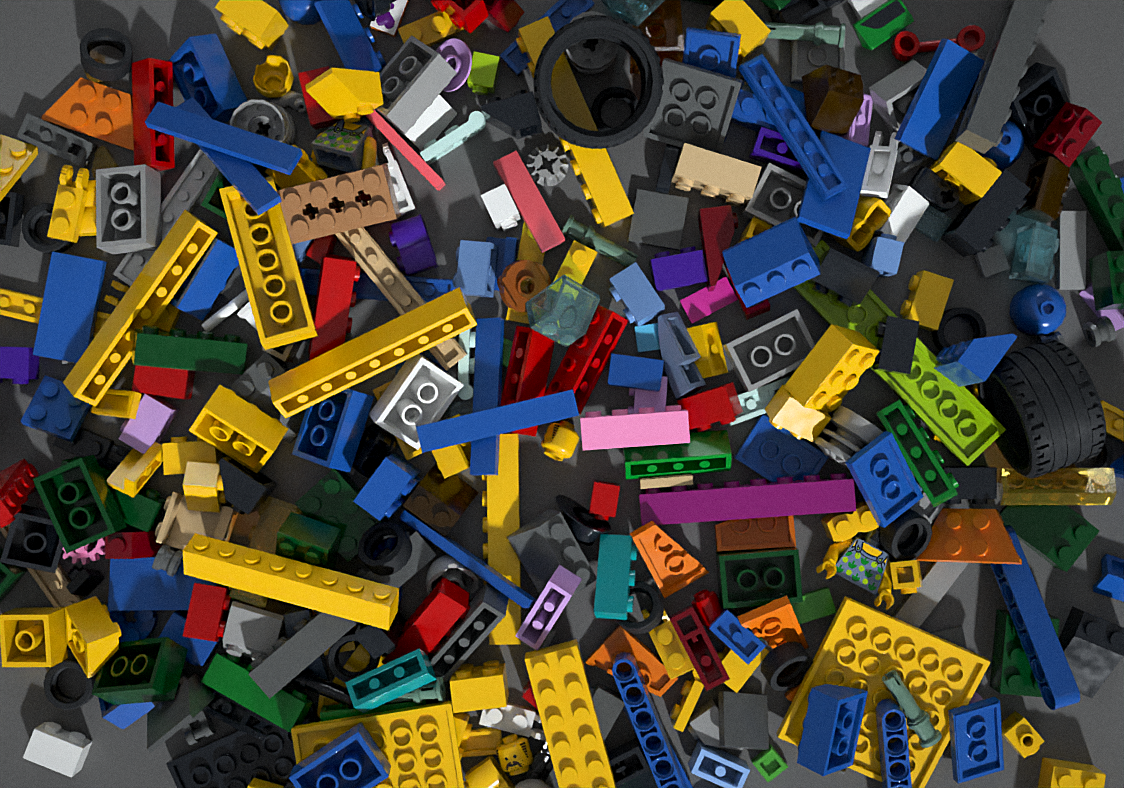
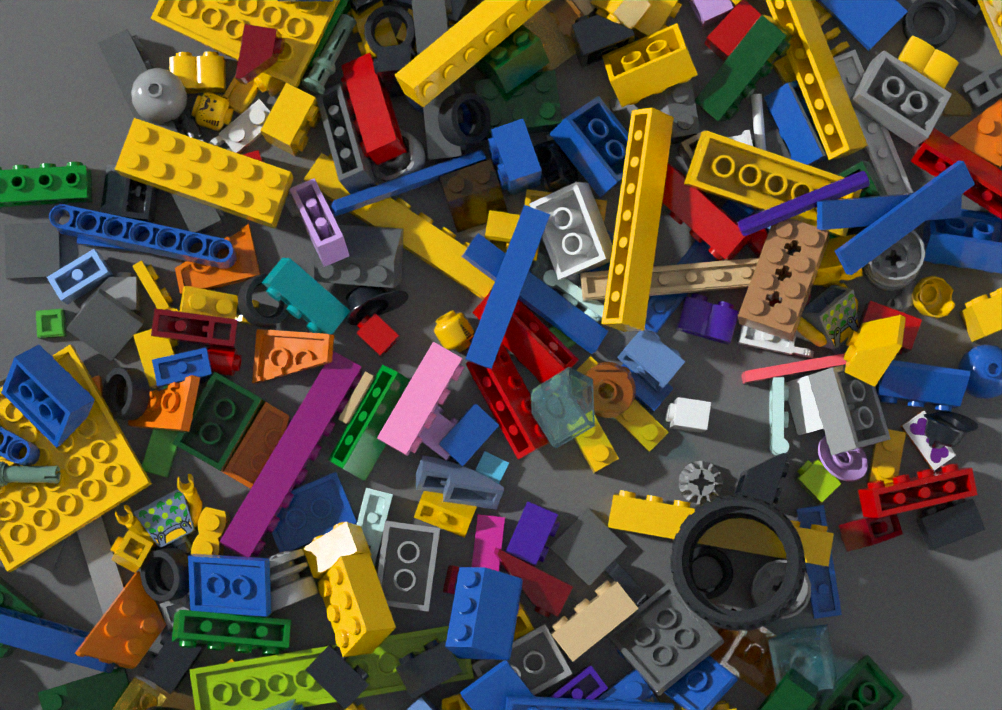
camera: 125 degrees right, 5 degrees down
(69, 205) = (936, 51): yellow hinge -> none
(268, 226) = (803, 203): none -> dark purple axle
(390, 681) = (349, 49): teal brick -> none
(444, 753) = (258, 51): none -> dark red slope
(529, 201) = (679, 444): coral tile -> none
(587, 236) = (612, 475): sand green pin -> none
(636, 295) = (535, 482): medium blue brick -> none
(712, 406) = (394, 480): red brick -> none

